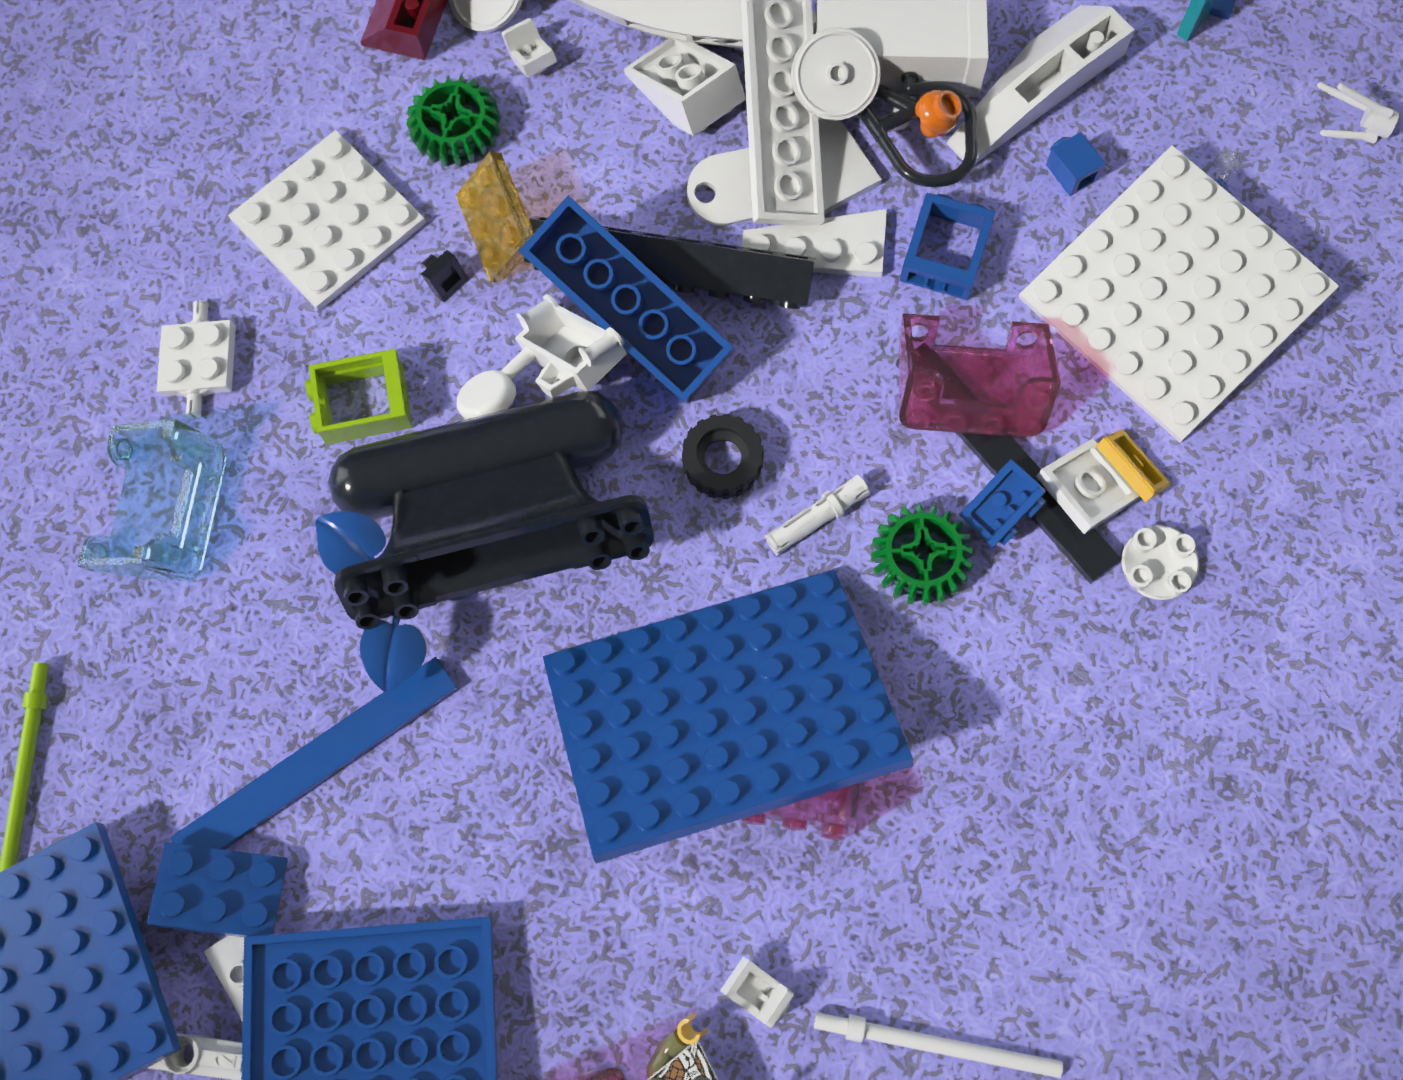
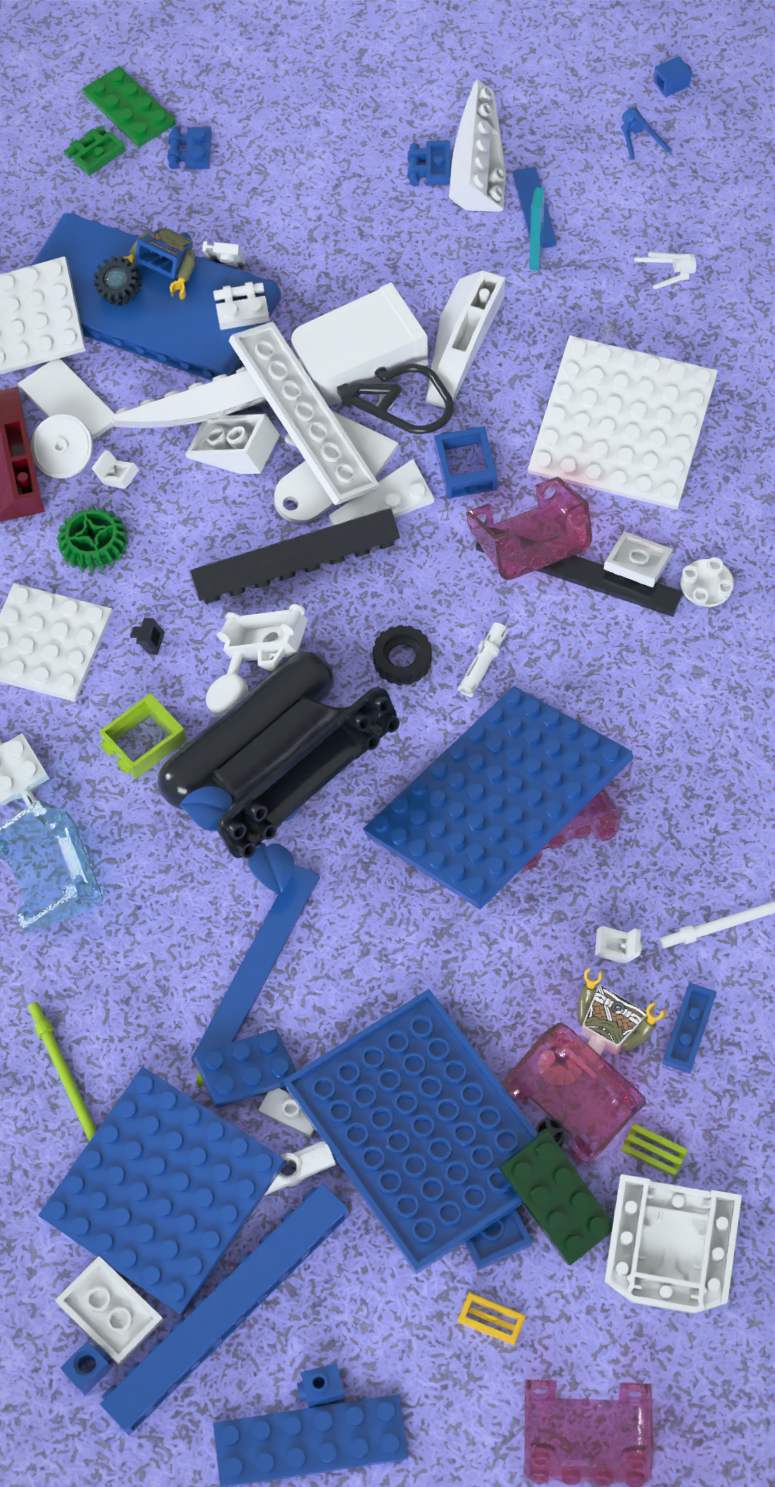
camera: 30 degrees left, 10 degrees down
(495, 216) = (163, 583): clear yellow plate -> none
(628, 298) = (277, 581): blue brick -> none
(835, 73) = (336, 389): white shield -> none
(905, 555) = (561, 662): green gear -> none
(938, 112) = (413, 383): orange animal -> none
(1003, 503) = (593, 594): blue bracket -> none
(1075, 163) = (514, 375): blue brick -> none
(1133, 465) = (657, 534): yellow tile -> none

